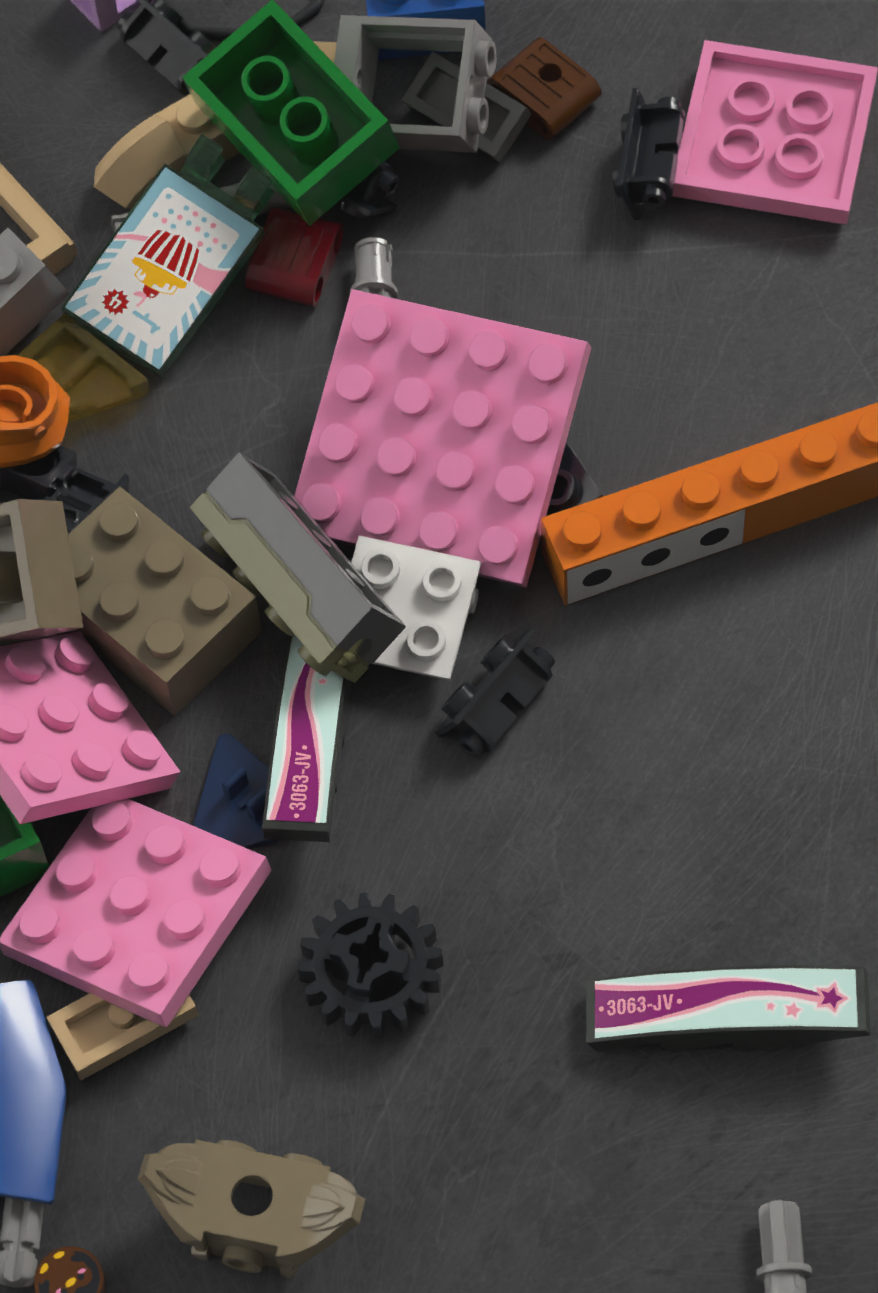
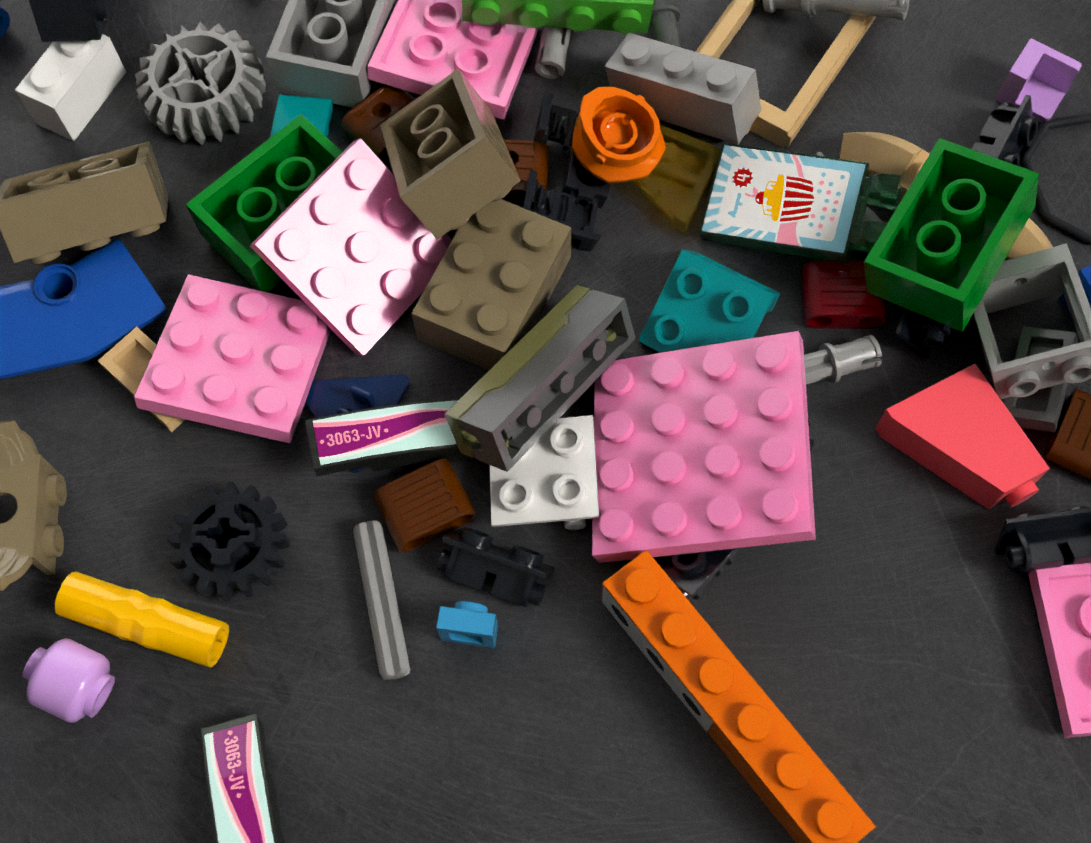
camera: 70 degrees right, 5 degrees up
(265, 390) = (706, 306): none -> teal bracket
(396, 750) = (424, 505): none -> reddish brown piece
(434, 1082) = (142, 619): none -> yellow axle
(486, 1171) = (68, 680): none -> lavender head
(493, 822) = (381, 600): none -> light grey axle
(511, 195) = (966, 439): none -> coral slope
(557, 732) = (467, 624): none -> dark azure plate

